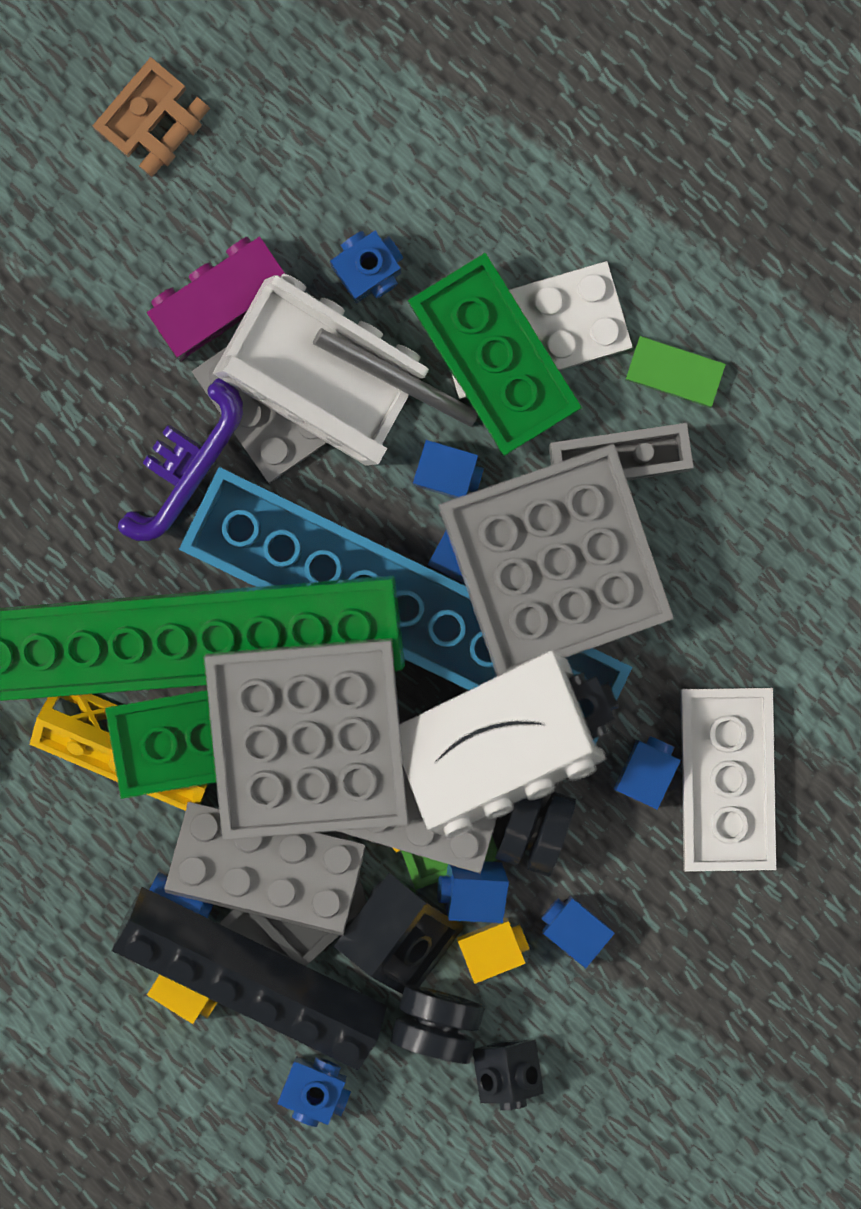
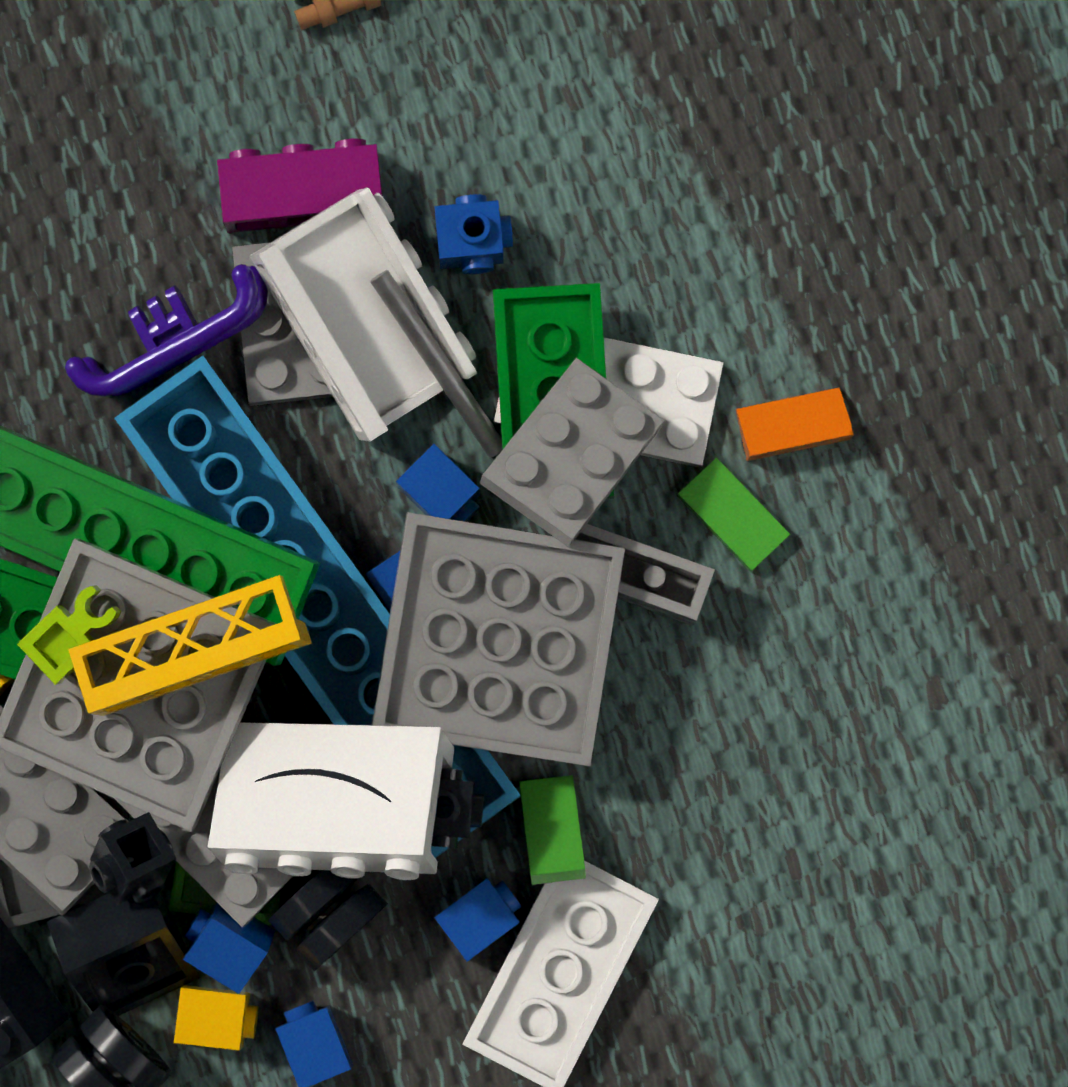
camera: 25 degrees right, 5 degrees down
(238, 734) = (59, 631): none -> lime plate
(348, 704) = (195, 667): none -> yellow fence
(374, 868) = (127, 846): none -> black brick
(535, 392) = (571, 452): none -> light grey plate
(667, 679) = (552, 830): none -> bright green tile
(684, 278) = (794, 424): none -> orange slope

